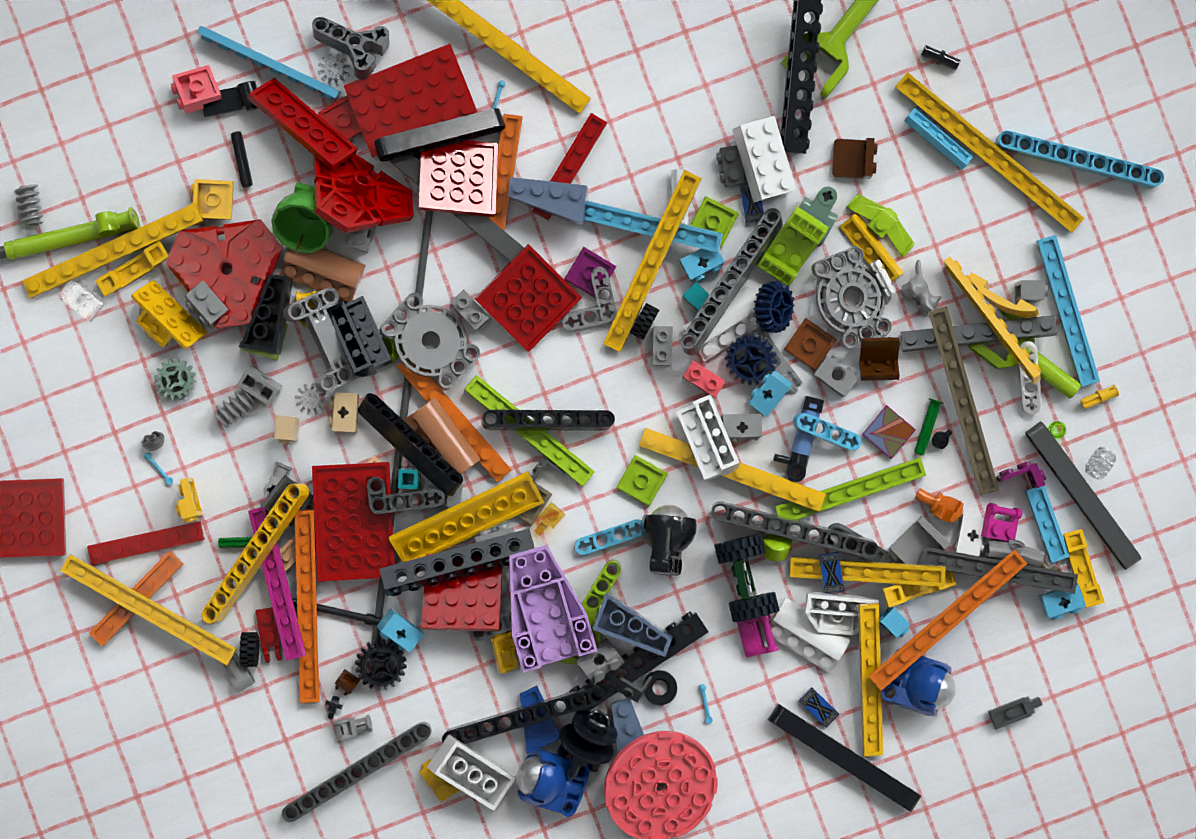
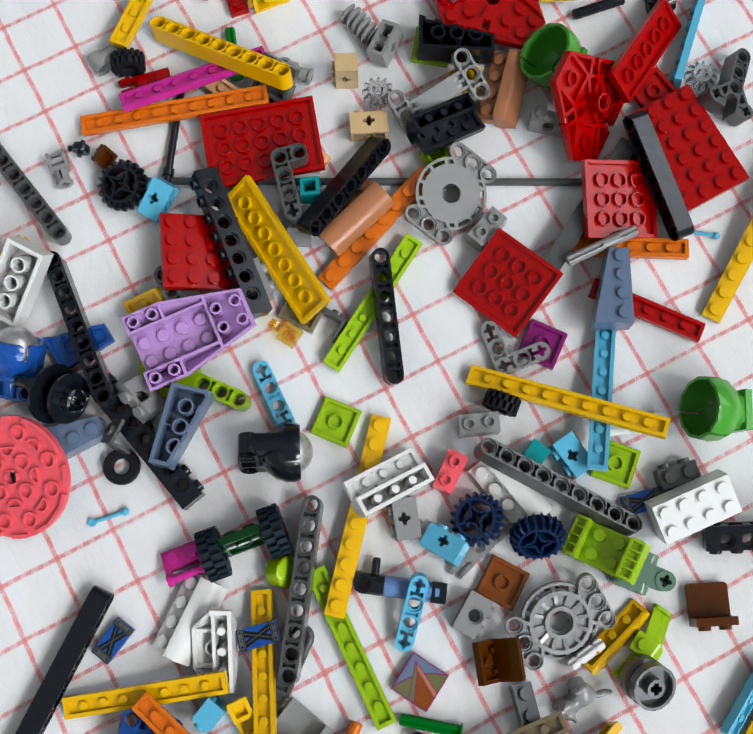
camera: 90 degrees right, 10 degrees down
(503, 201) = (601, 245): none -> light grey axle
(679, 114) = (720, 409): none -> bright green plate
(914, 228) = (647, 682): none -> dark grey wheel

